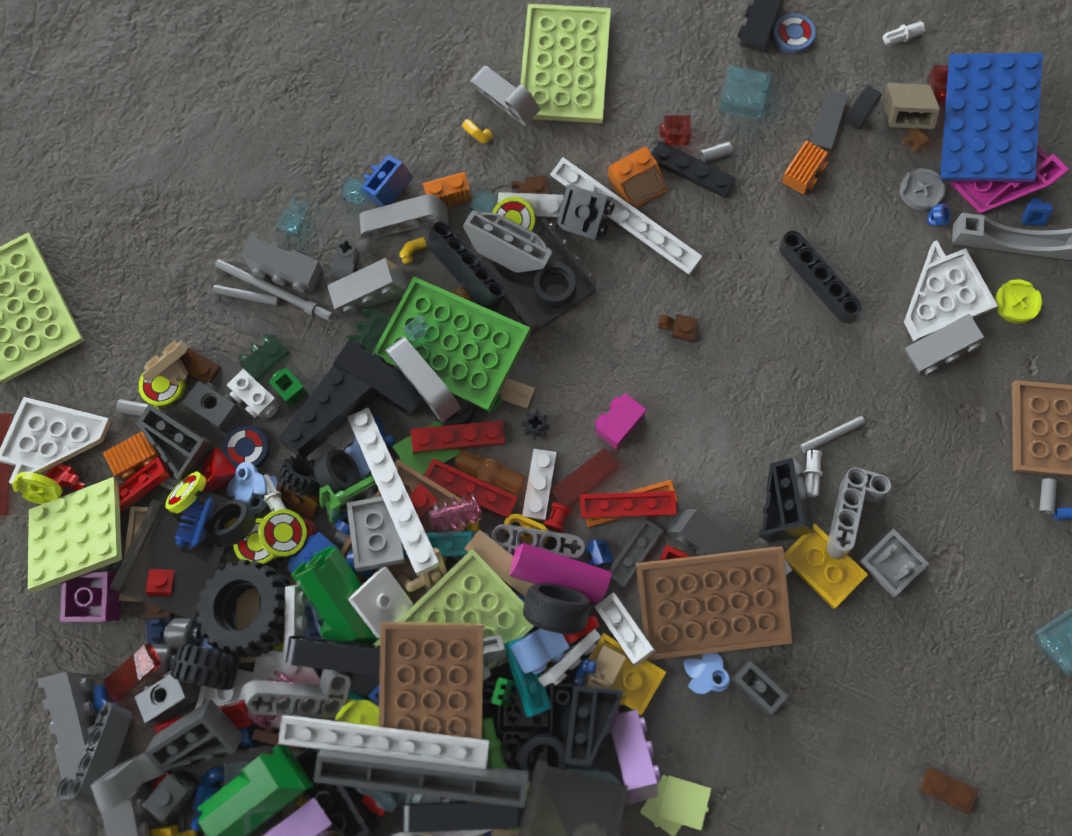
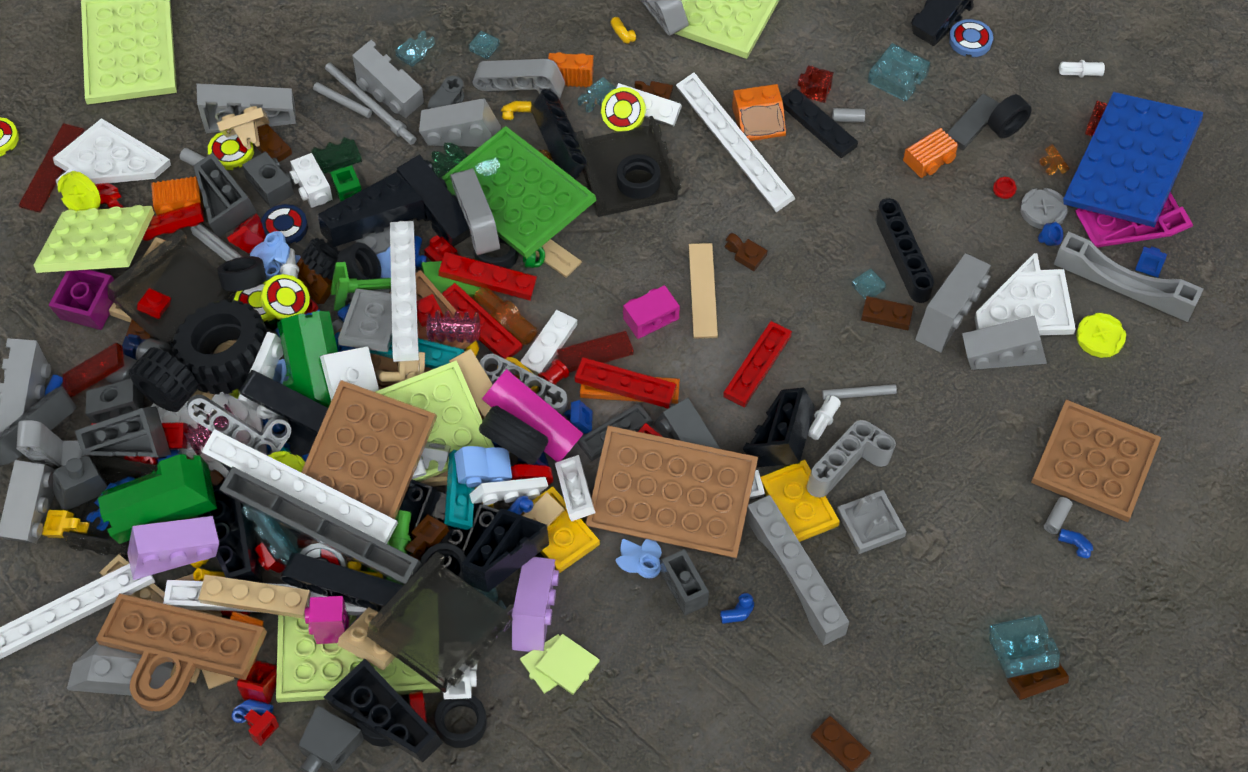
camera: 15 degrees right, 15 degrees down
(142, 342) = (221, 100): none -> light grey wedge
(184, 493) = (211, 235): neon yellow tile -> none
(198, 533) = (208, 259): blue hinge -> none
(386, 181) = (517, 42): blue brick -> none
(402, 423) = (437, 248): none -> red tile
(506, 242) = (604, 122): light grey wedge -> none
(507, 692) = (435, 488): green tile -> none
(515, 730) = (426, 534): none -> reddish brown plate
(540, 428) = (567, 289): black gear -> none
(585, 212) = (695, 124): black plate -> none
(656, 380) = (703, 291): none -> tan piece
(734, 439) = (757, 364): none -> red plate
(799, 321) = (868, 284): none -> clear light blue plate
(814, 693) = (741, 610): none -> blue arm
(826, 345) = (887, 313): none -> reddish brown plate
(874, 656) = (817, 600): none -> light grey arch
(881, 180) = (1004, 187): none -> red plate
(884, 316) = (953, 302): none -> light grey wedge
(910, 105) = (1057, 127): dark tan brick -> none

